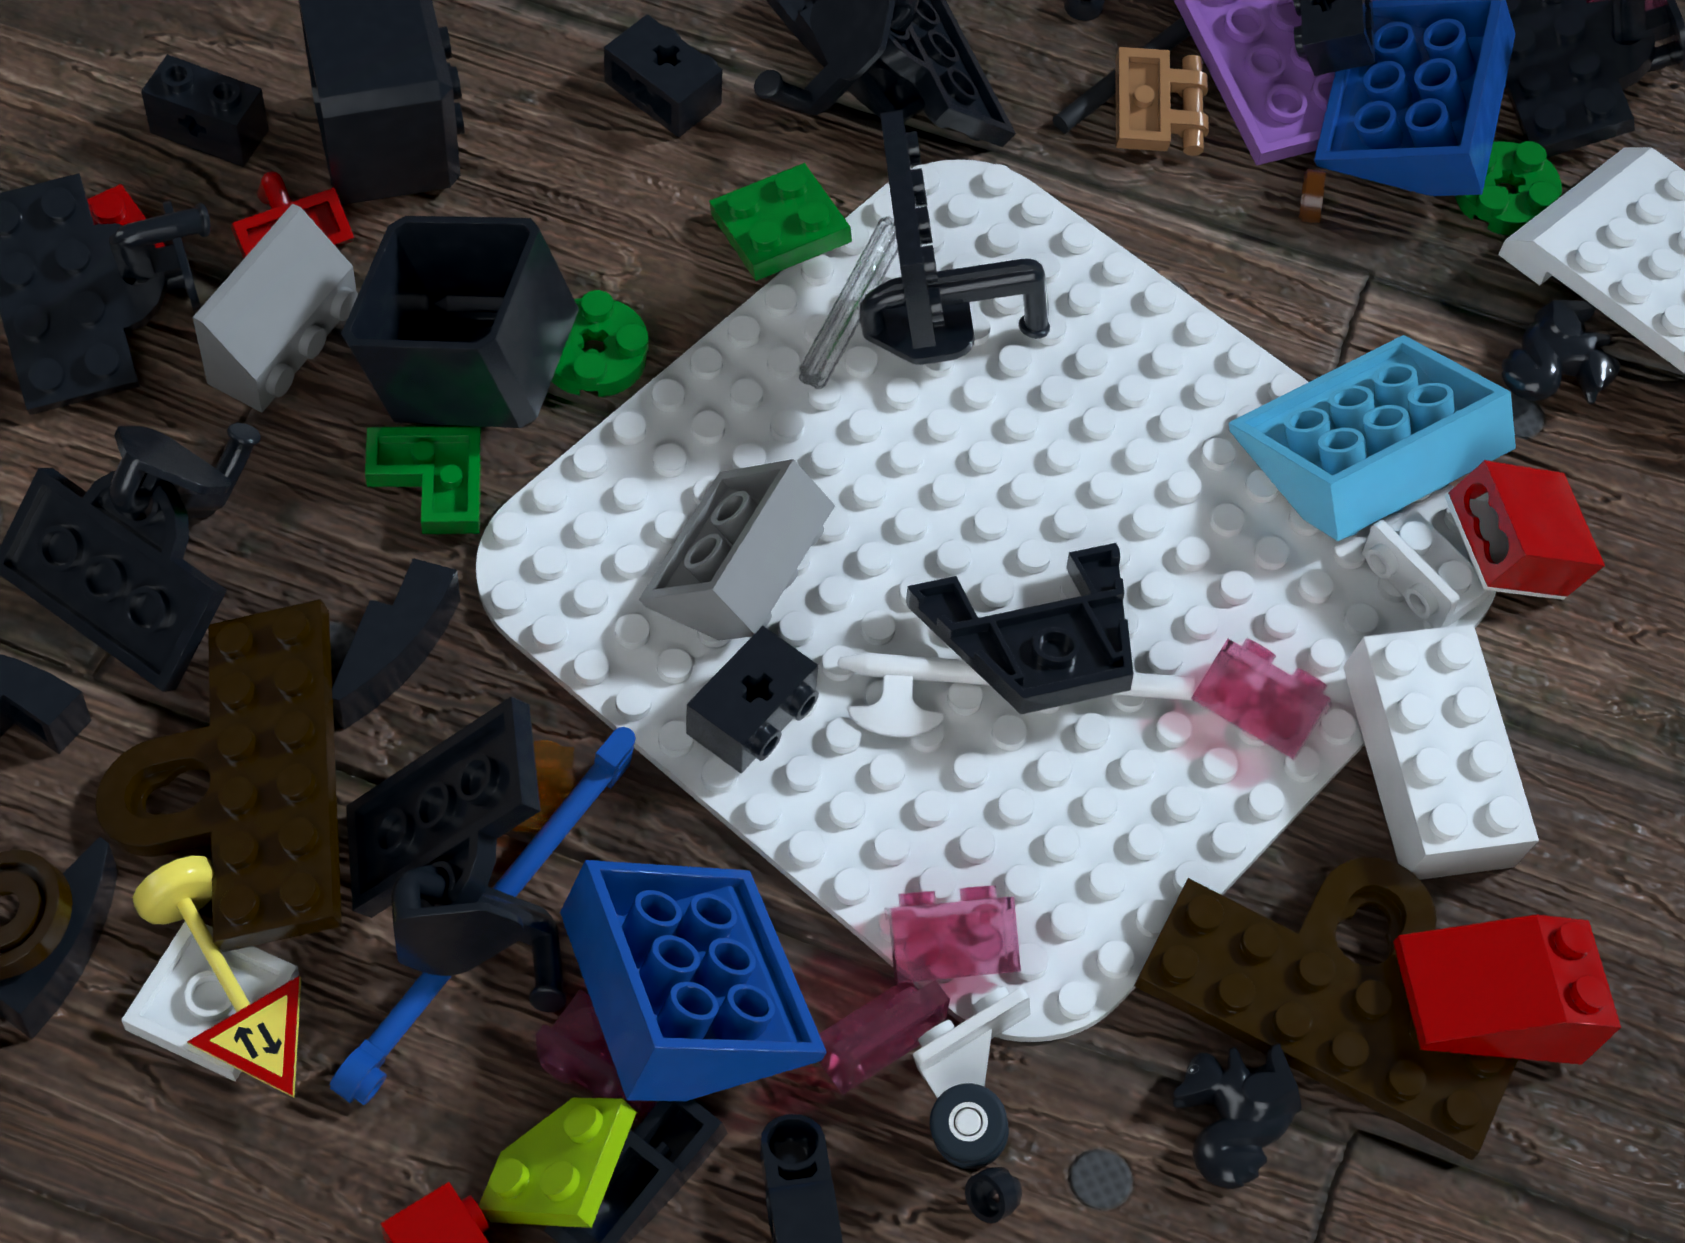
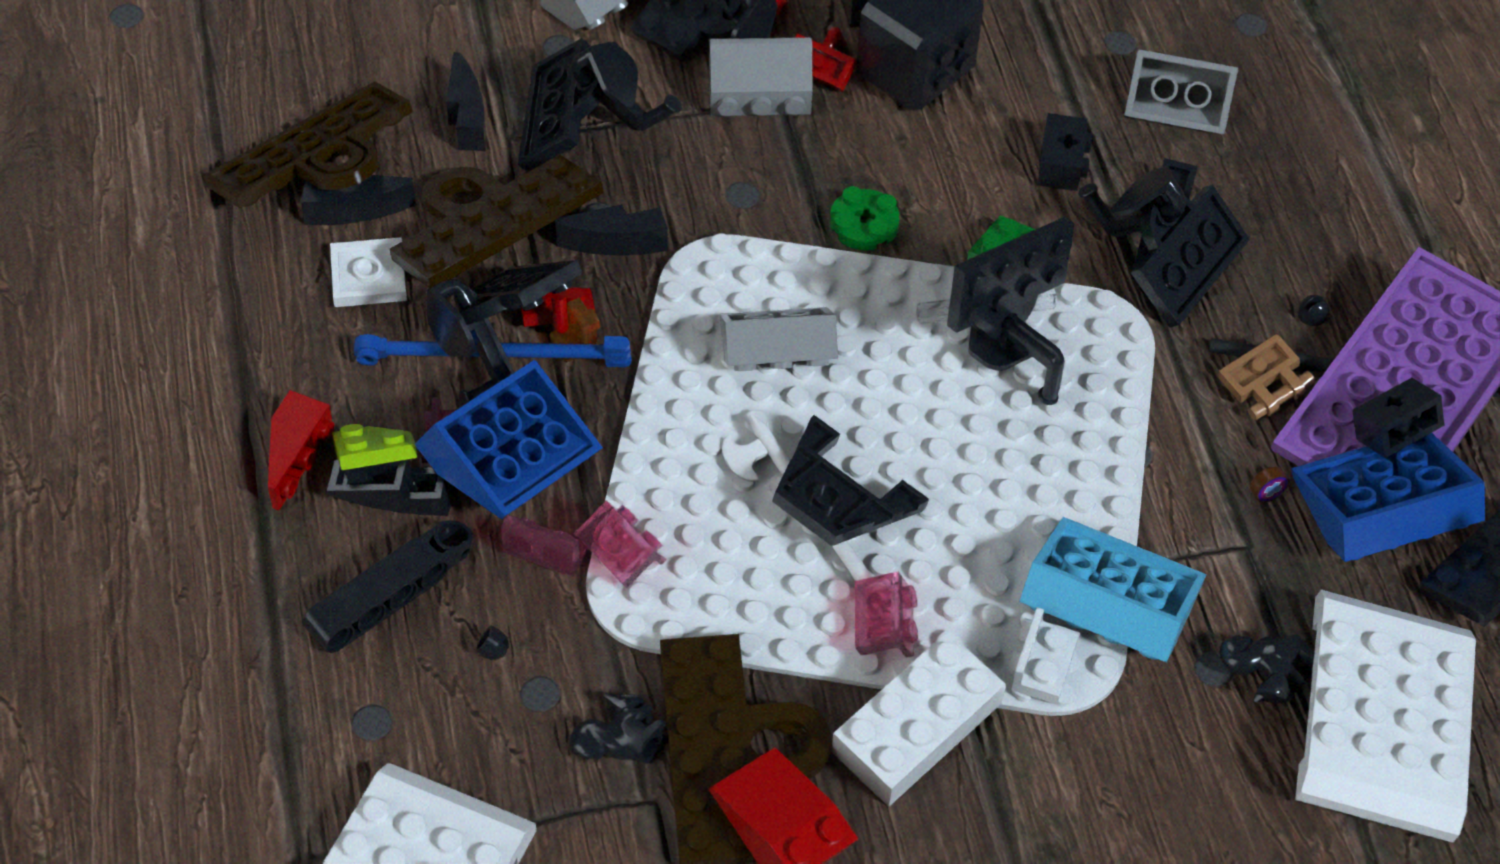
camera: 60 degrees right, 5 degrees down
(260, 1035) = (358, 295): light yellow piece -> none
(439, 461) = (732, 195): green plate -> none
(461, 321) = (806, 143): black plate -> none
(753, 700) = (692, 386): black brick -> none
(967, 1117) = (516, 598): plate -> none
(1524, 530) = (1110, 693): red piece -> none
(1526, 169) = (1387, 566): green plate -> none

